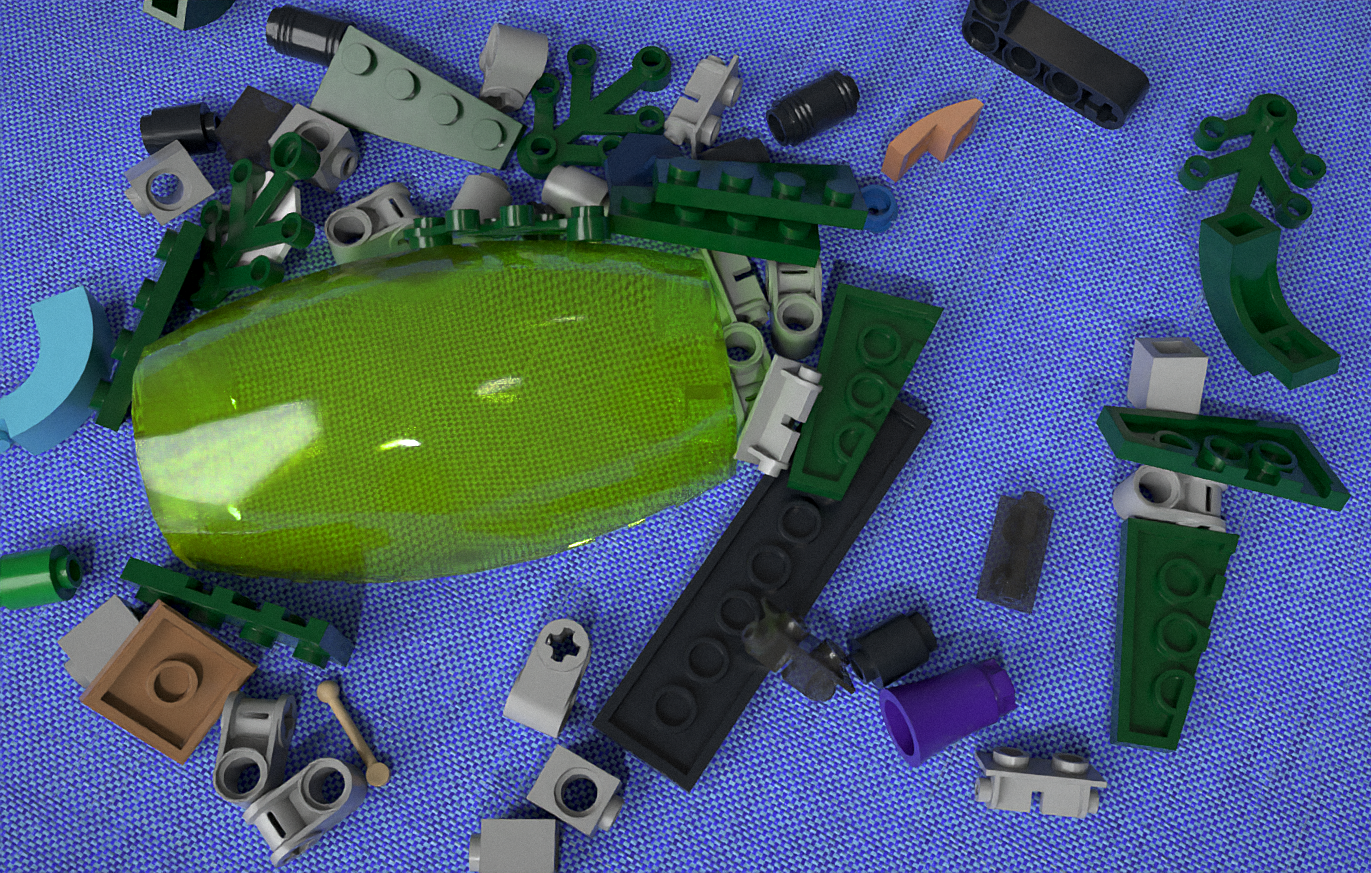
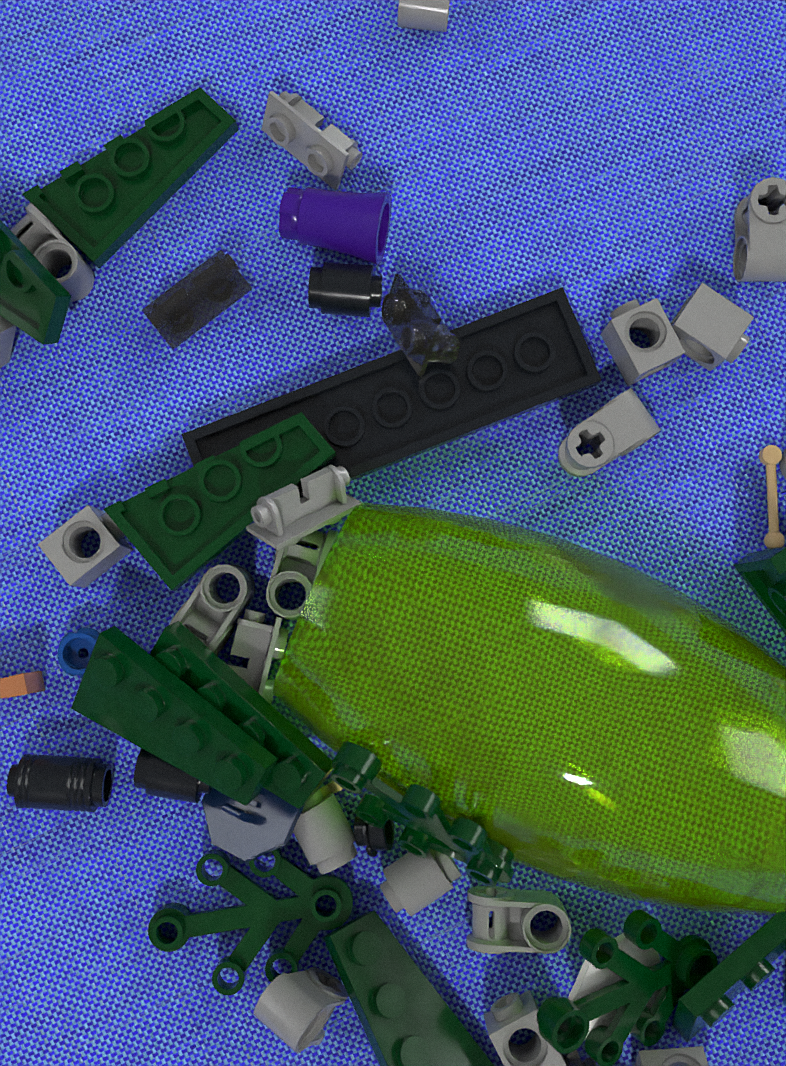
camera: 145 degrees left, 15 degrees up
(701, 121) = (131, 863): light grey hinge -> none
(941, 267) = (65, 549): none -> light grey brick

